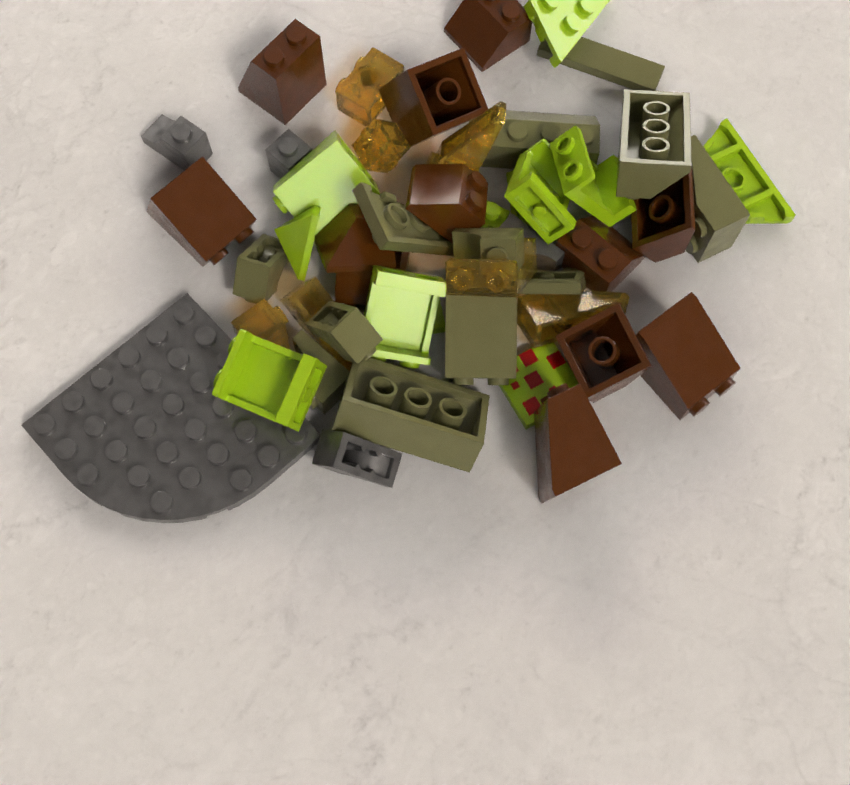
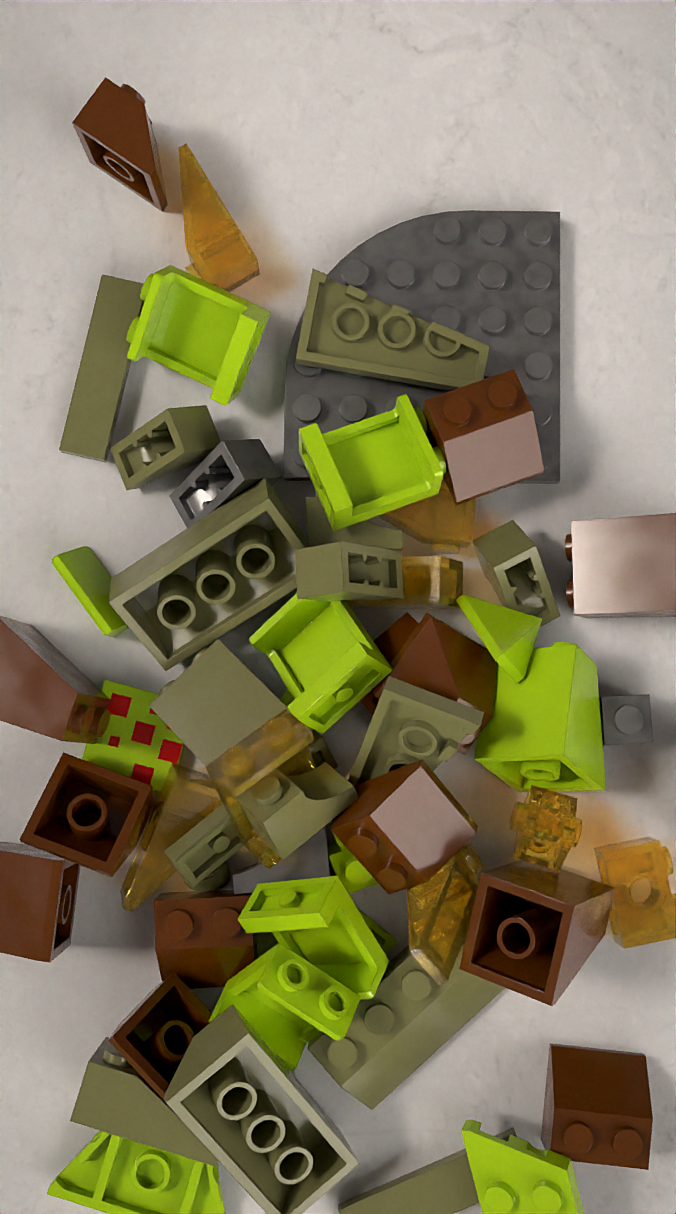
camera: 135 degrees right, 15 degrees up
(195, 454) = (369, 338): none -> olive wing
(196, 335) = (484, 436): none -> slope
(196, 706) = (122, 141): none -> reddish brown slope
(211, 607) = (211, 236): none -> clear yellow slope
(278, 551) = (197, 331): none -> lime panel
(351, 598) = (102, 370): none -> olive tile
(366, 511) = (165, 444): none -> olive arch
(484, 478) = (91, 586): none -> lime slope

